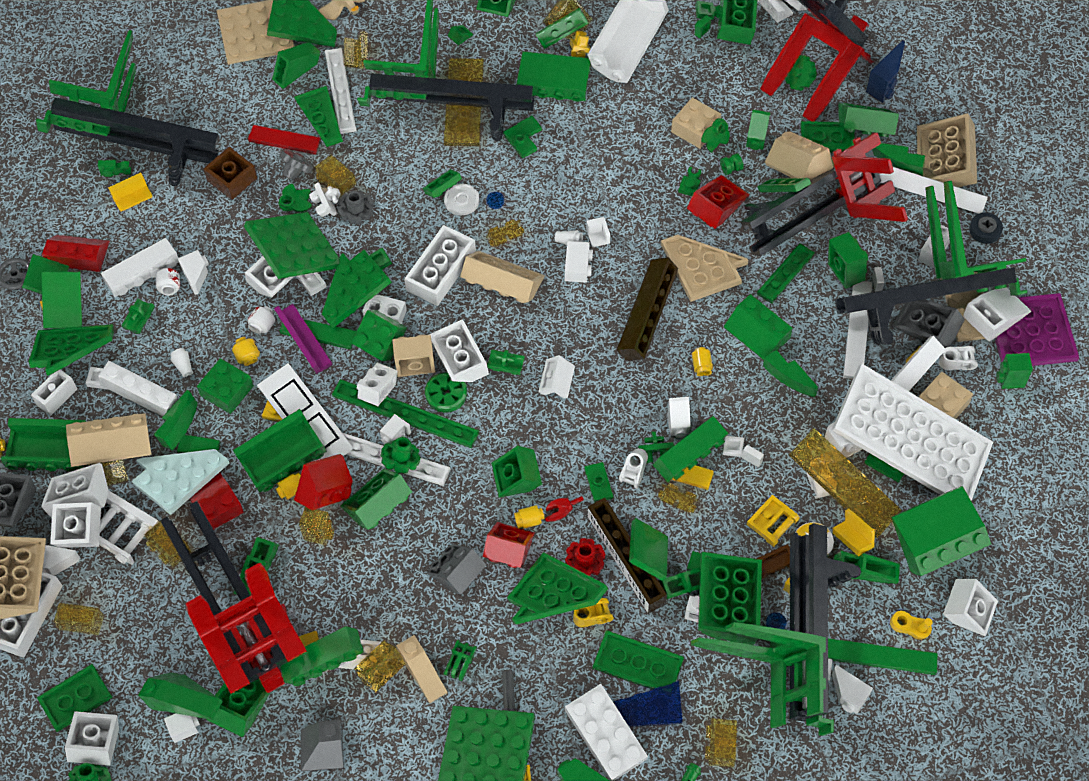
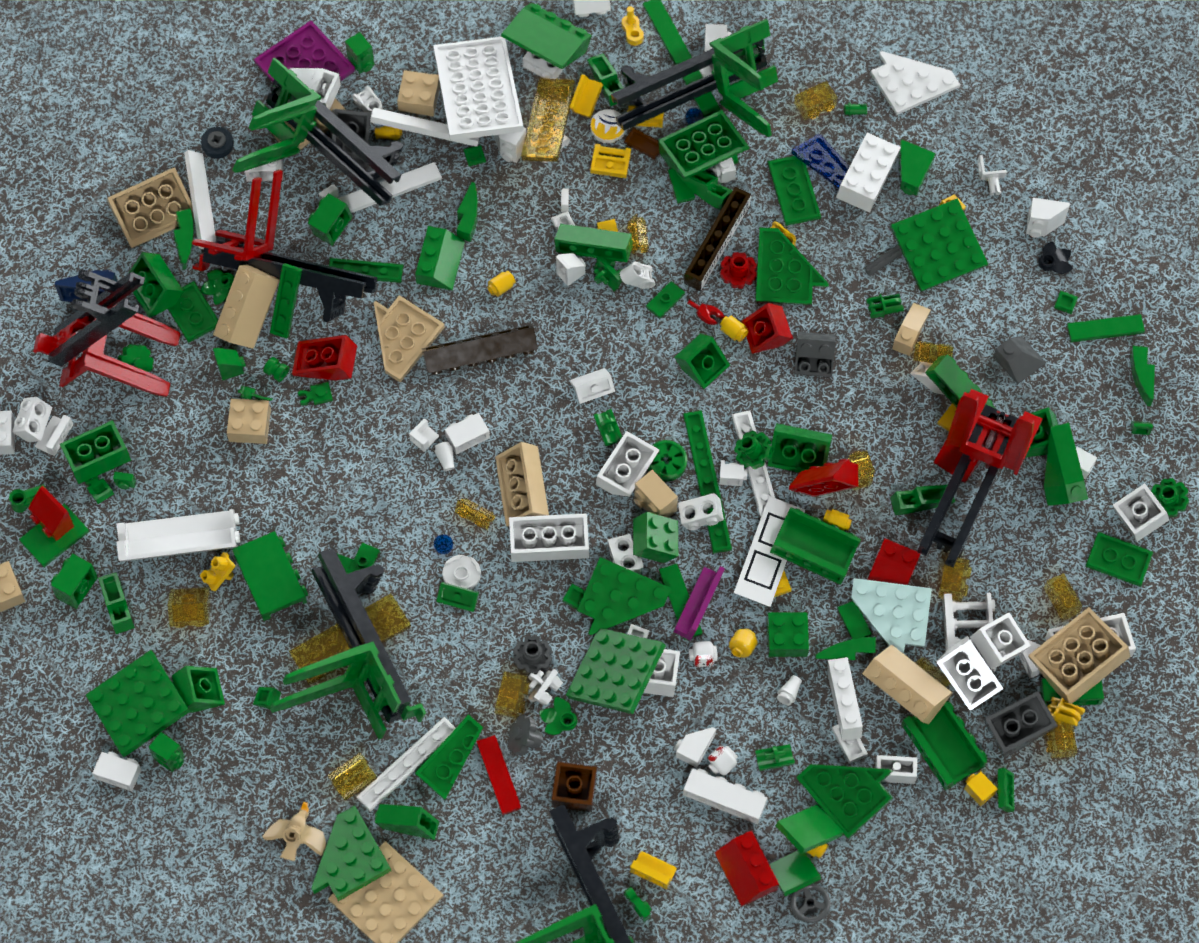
camera: 125 degrees left, 5 degrees up
(562, 28) = (211, 595): green tile -> none
(648, 549) = (704, 220): green tile -> none

